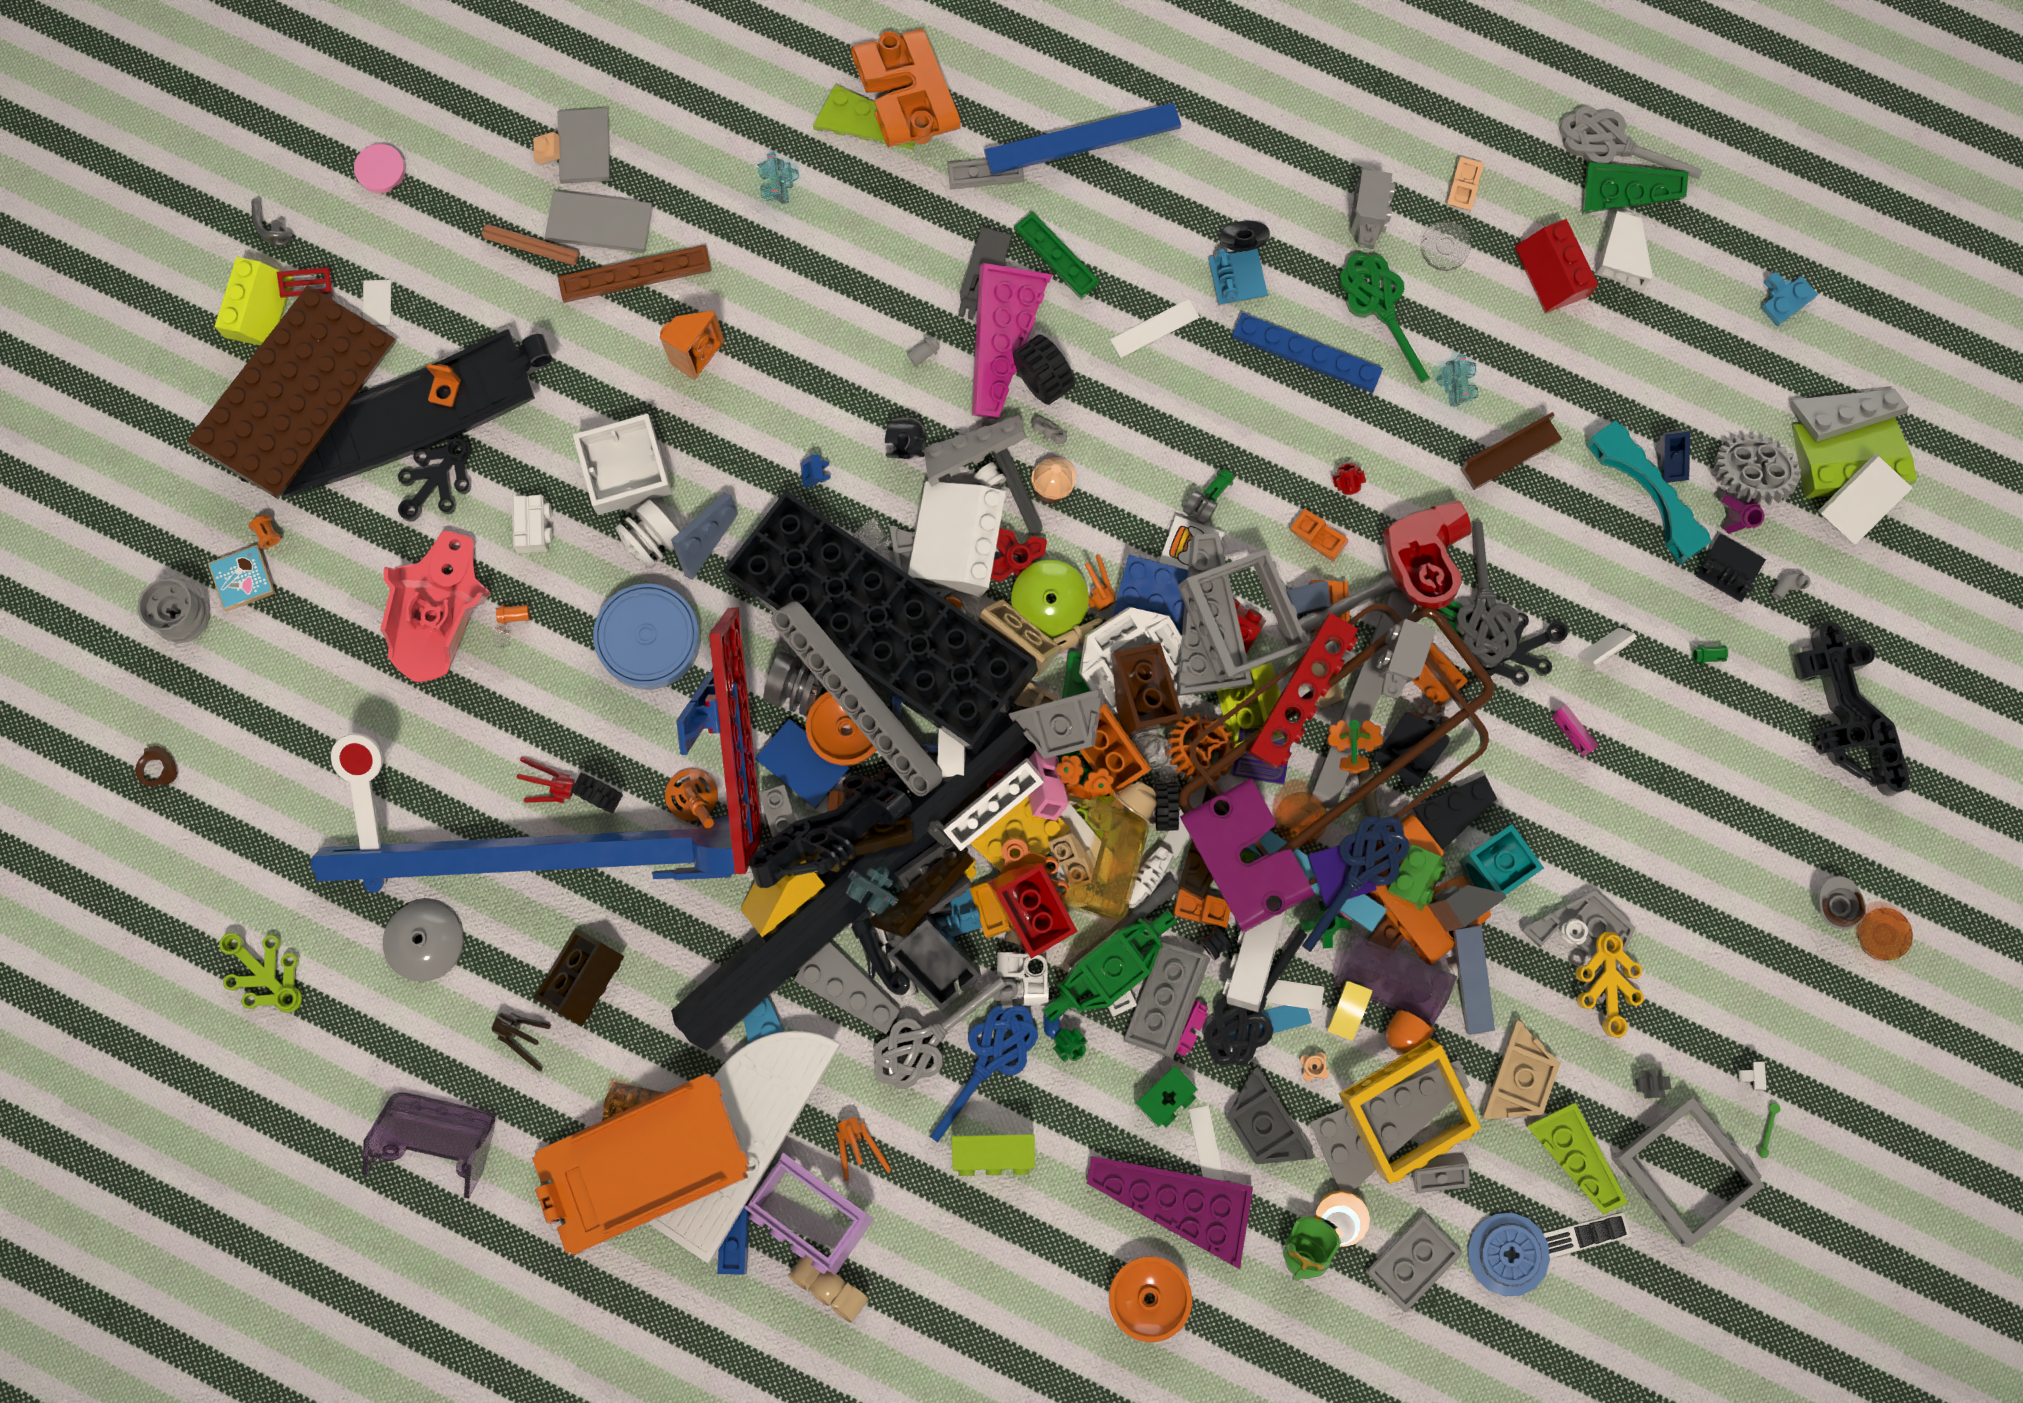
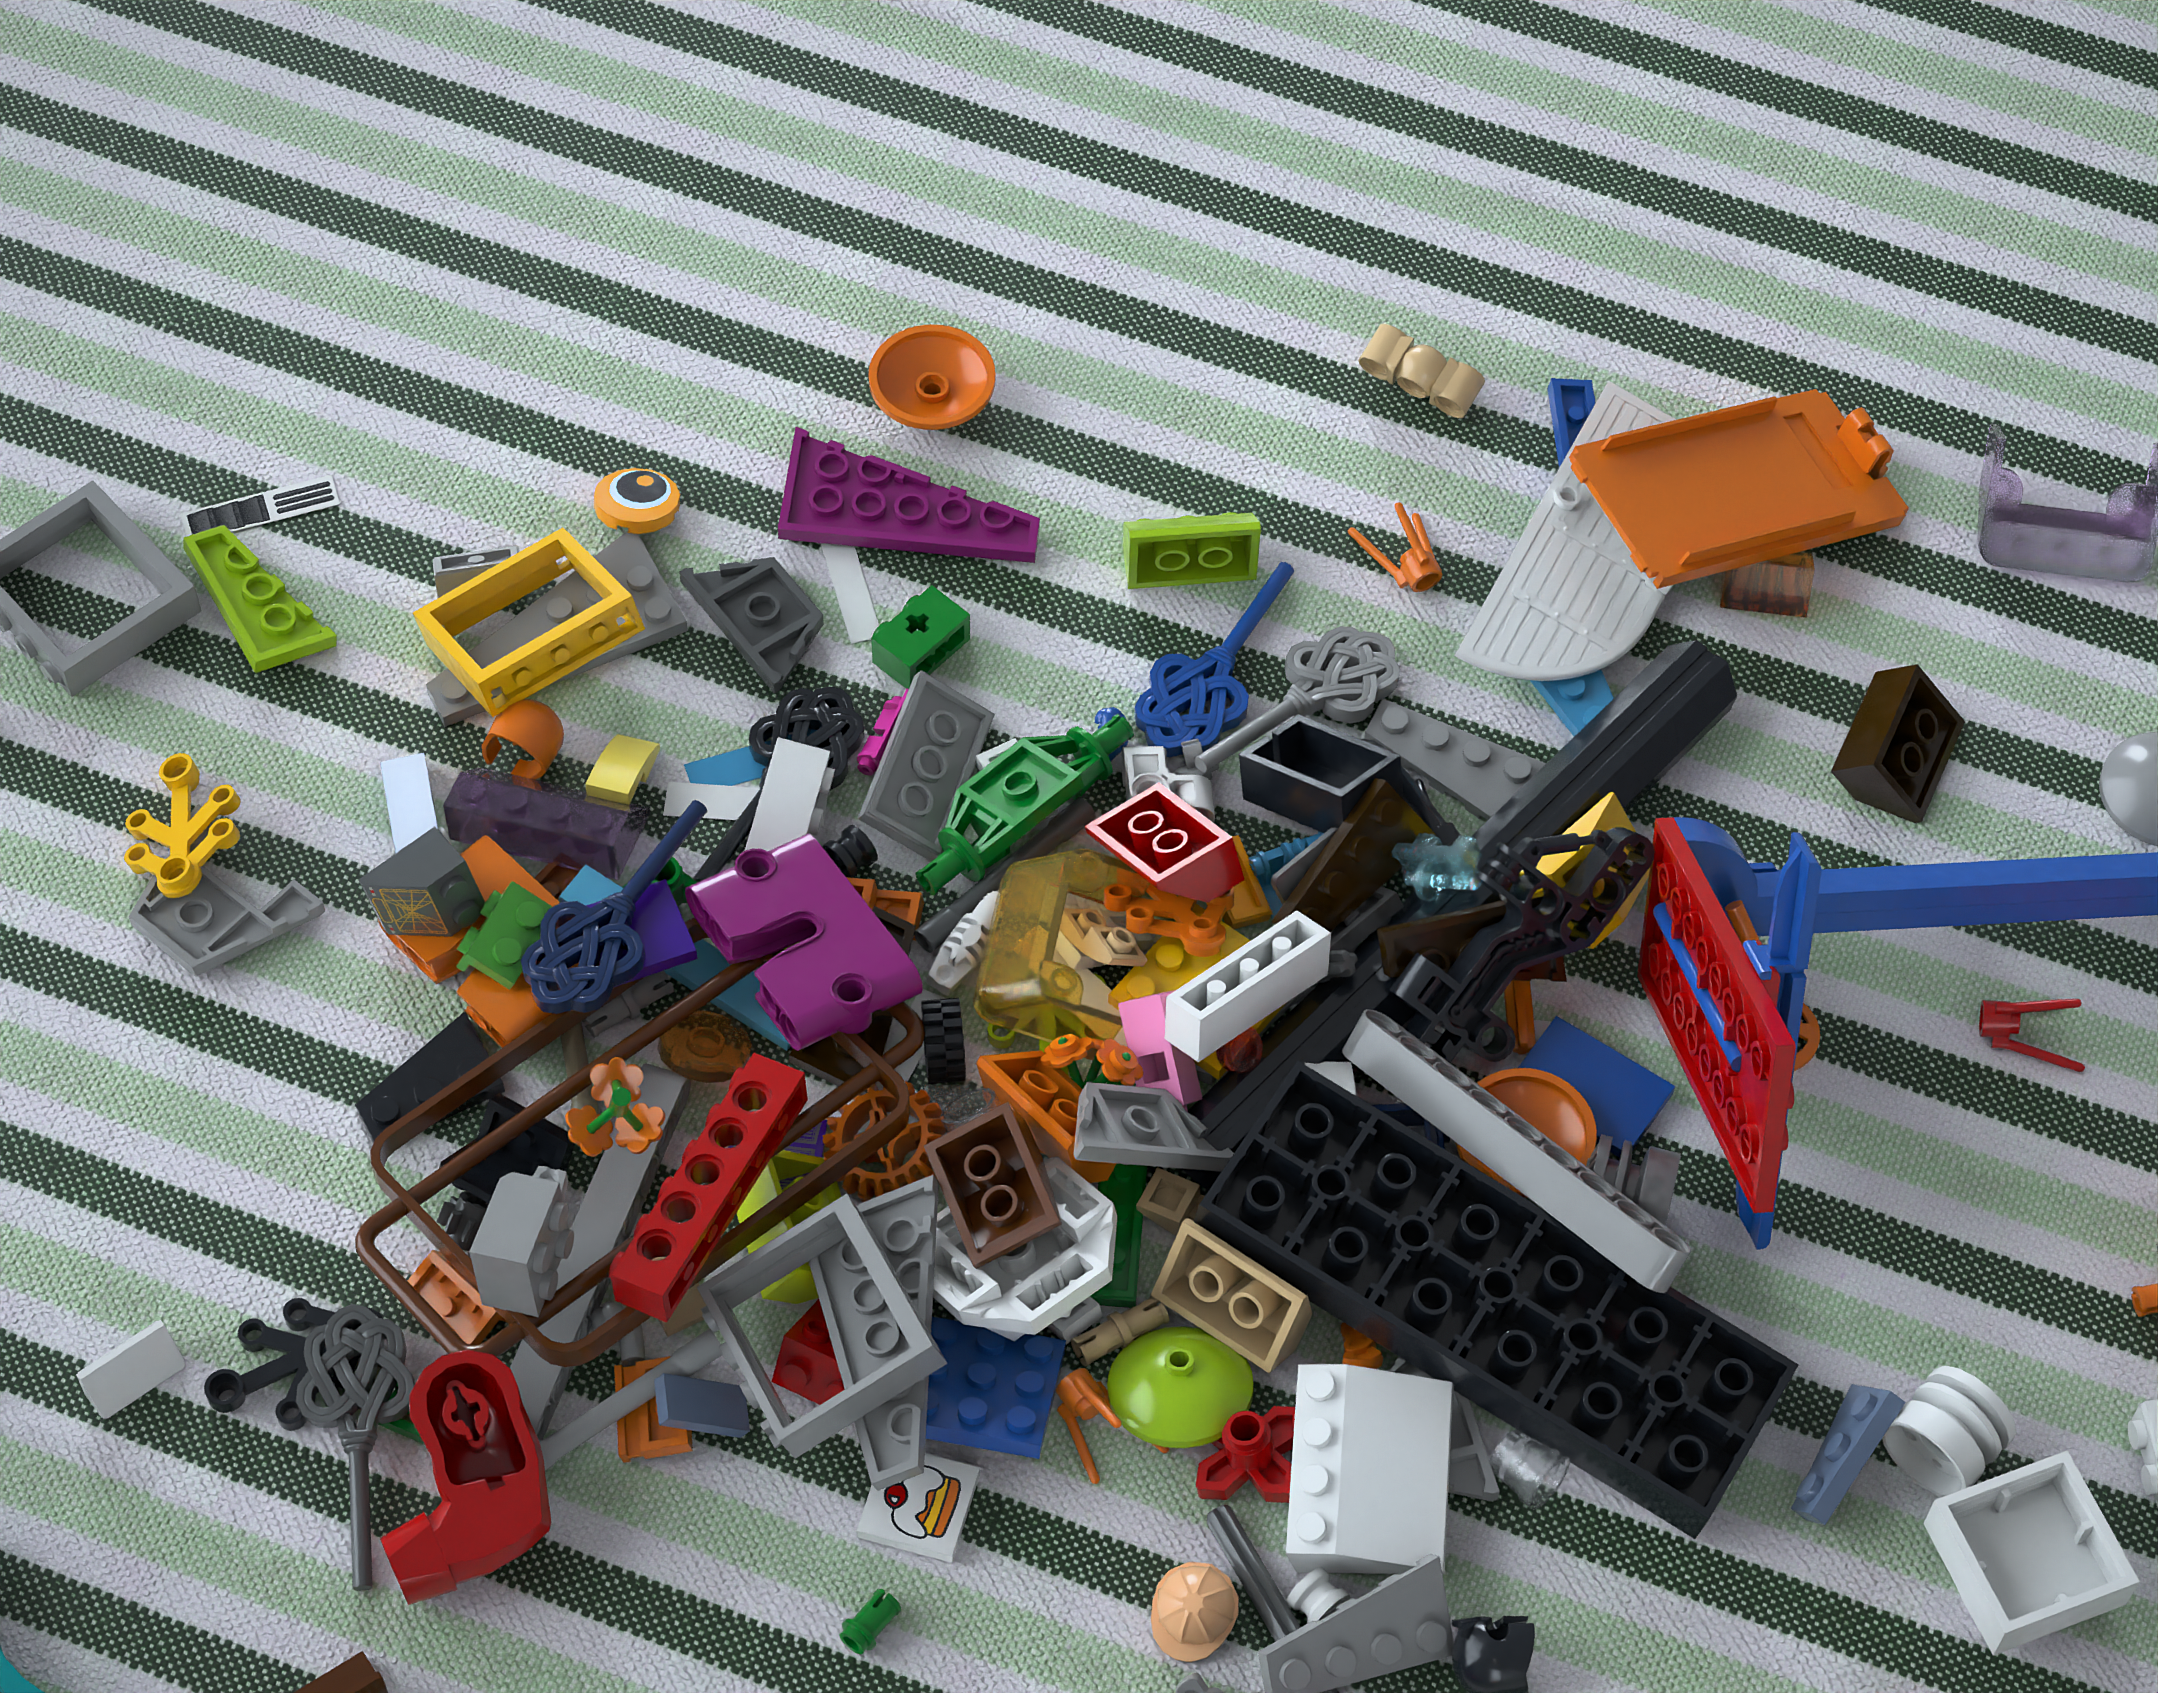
camera: 175 degrees right, 20 degrees down
(507, 1027) = (1994, 669): dark brown plant -> none
(596, 793) = (1936, 1000): black tyre -> none
(647, 636) = (1910, 1267): medium blue brick -> none
(777, 809) = (1613, 993): light grey brick -> none
(800, 1246) = (1488, 413): lavender window -> none
(812, 470) = (1664, 1588): blue tile -> none
(1070, 1044) = (1081, 695): green gear -> none
(1139, 799) = (998, 1025): tan piece -> none
(1205, 510) = (905, 1572): flat silver wheel -> none
(1310, 1073) = (677, 687): light nougat plate -> none
(1310, 1248) = (677, 452): bright green helmet -> none
(1318, 535) = (671, 1543): orange slope -> none
(1349, 478) = (614, 1643): red gear -> none
(1413, 1262) = (524, 460): light grey tile -> none
(1488, 1260) = (369, 502): medium blue piece -> none
(1502, 862) = (358, 978): teal brick -> none
(1522, 1078) = (339, 699): tan wing -> none
(1574, 730) = (202, 1227): dark pink slope -> none
(1581, 929) = (231, 885): white plate -> none
(1653, 1084) = (124, 697): dark grey gear -> none

